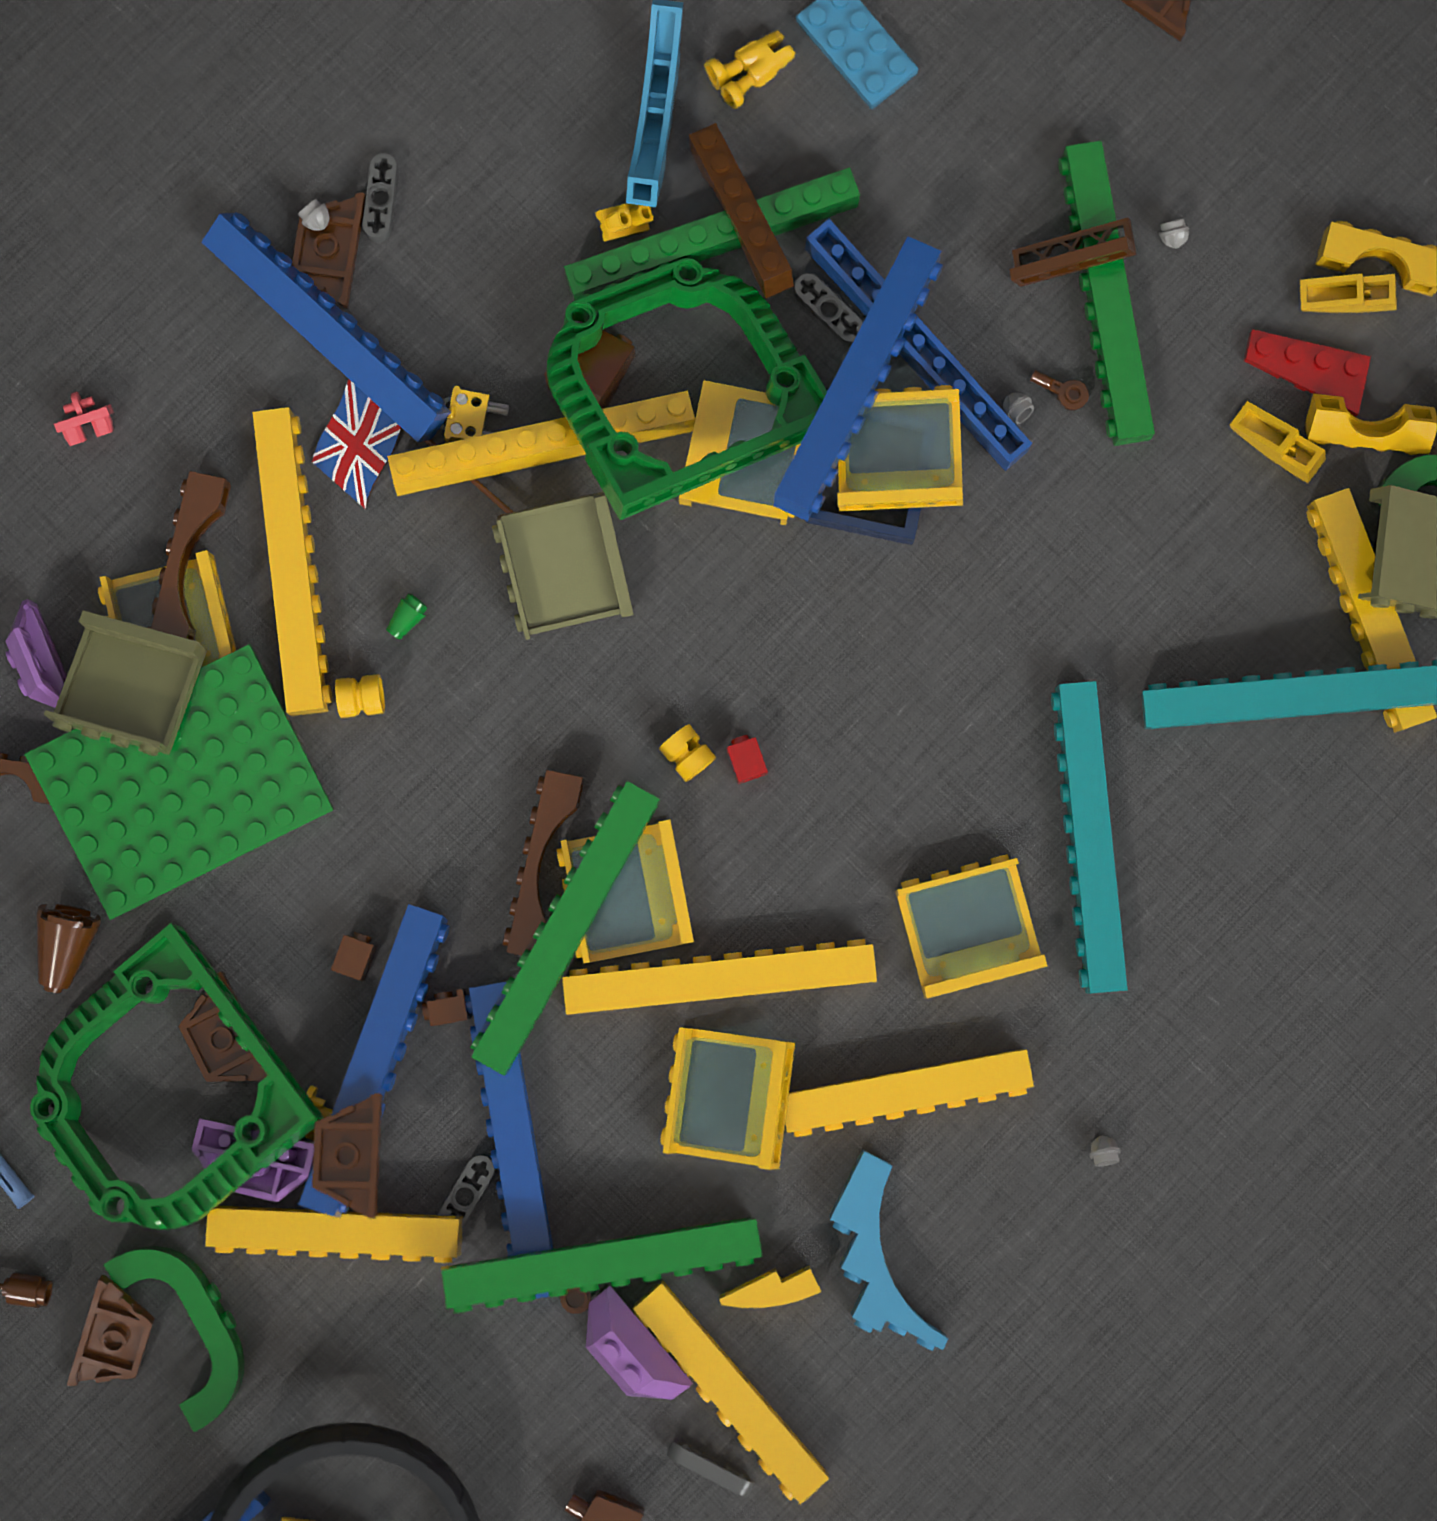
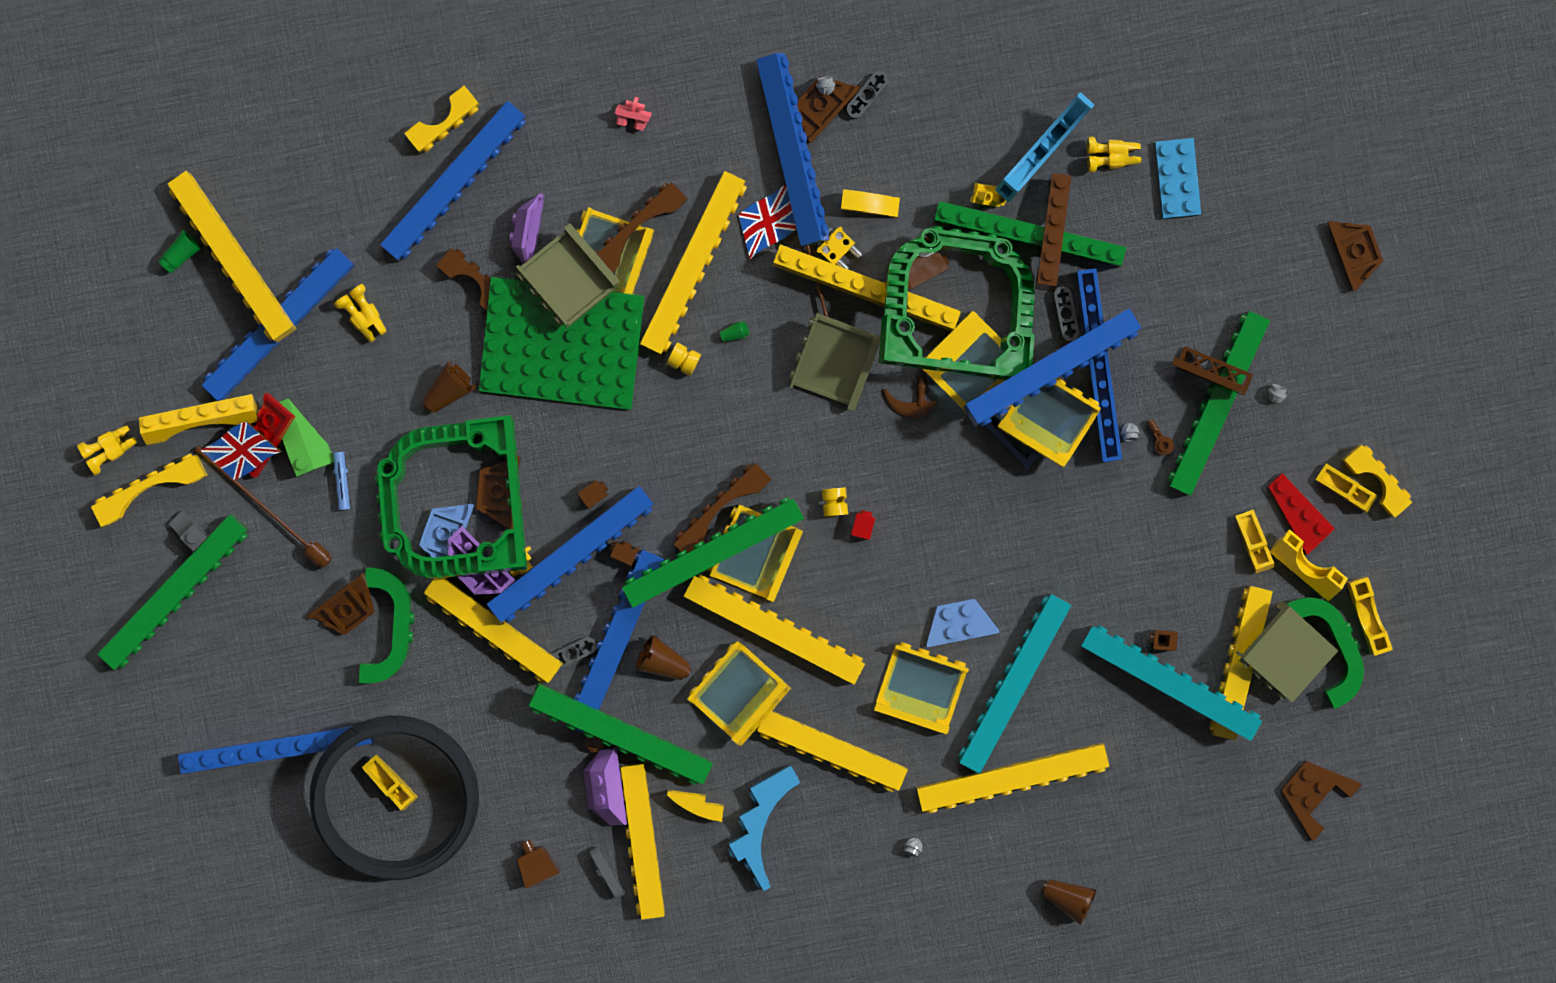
camera: 30 degrees right, 5 degrees up
(173, 1135) = (441, 526): none -> medium blue wing
(349, 1155) = (528, 597): reddish brown wing -> none
(475, 332) = (870, 203): none -> yellow slope
(595, 1122) = (662, 660): none -> reddish brown cone
(712, 564) = (914, 409): none -> reddish brown piece
(962, 806) = (959, 622): none -> medium blue wing
(1174, 966) = (1013, 777): none -> yellow brick
(1258, 644) = (1170, 640): none -> reddish brown brick
(1363, 1080) = (1069, 898): none -> reddish brown cone

